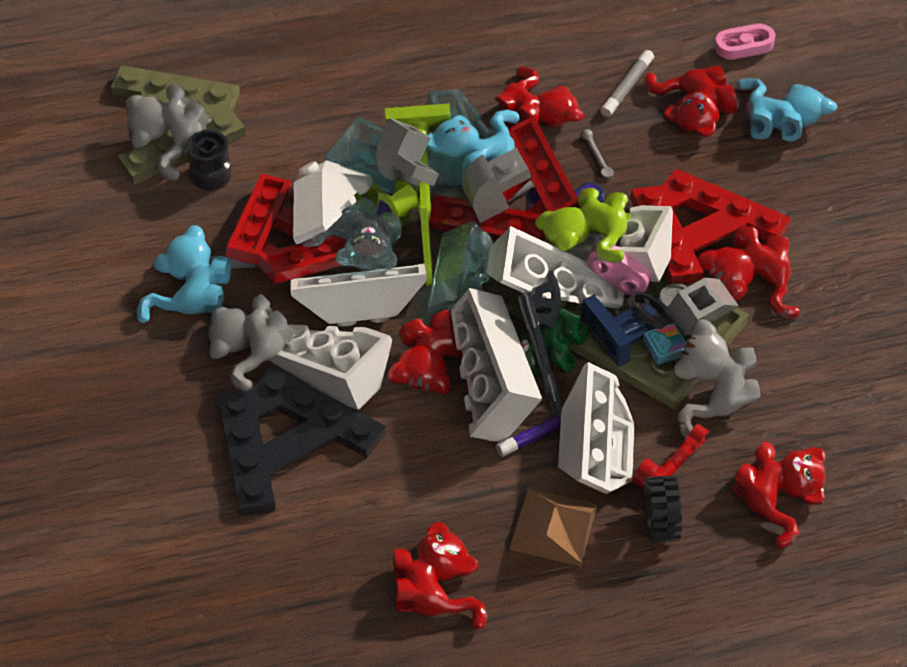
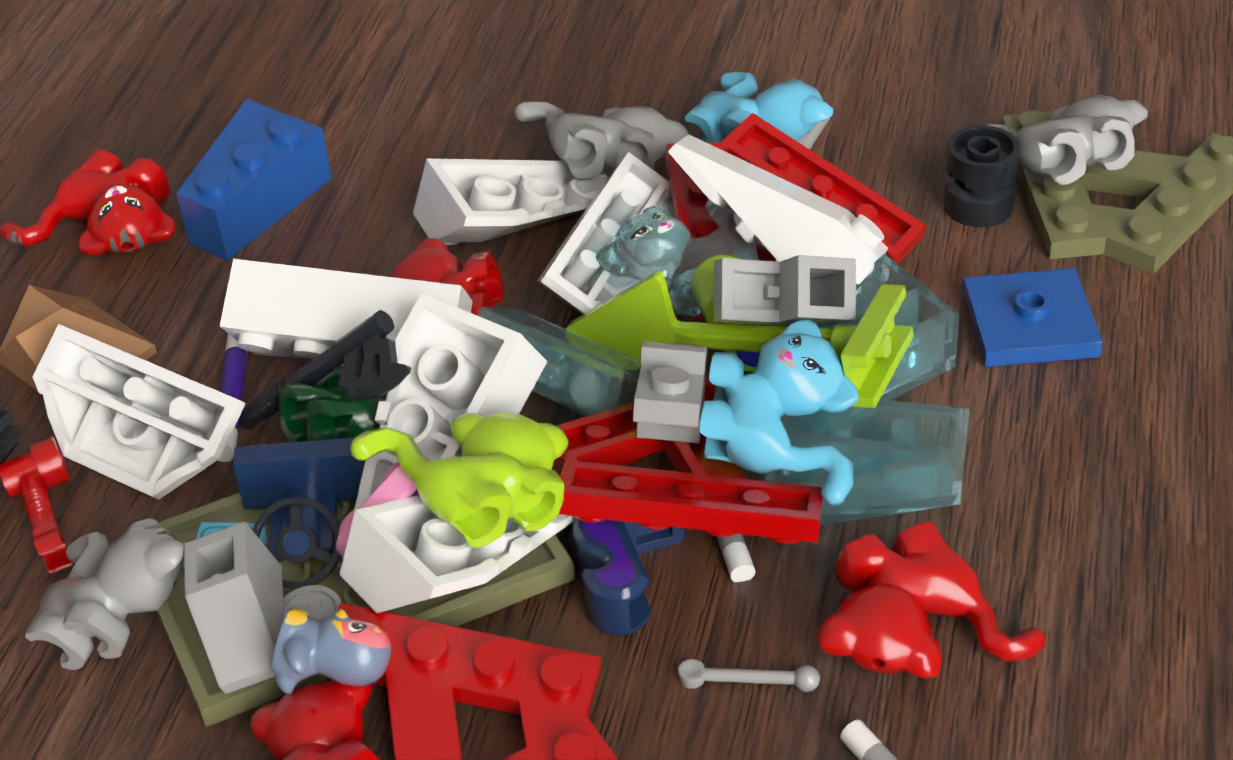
camera: 120 degrees right, 10 degrees down
(304, 124) = (1031, 317): none -> blue plate
(321, 422) = (413, 129): black plate -> none
(370, 504) = (251, 178): none -> blue wedge
(712, 256) = (336, 647): none -> sand blue animal

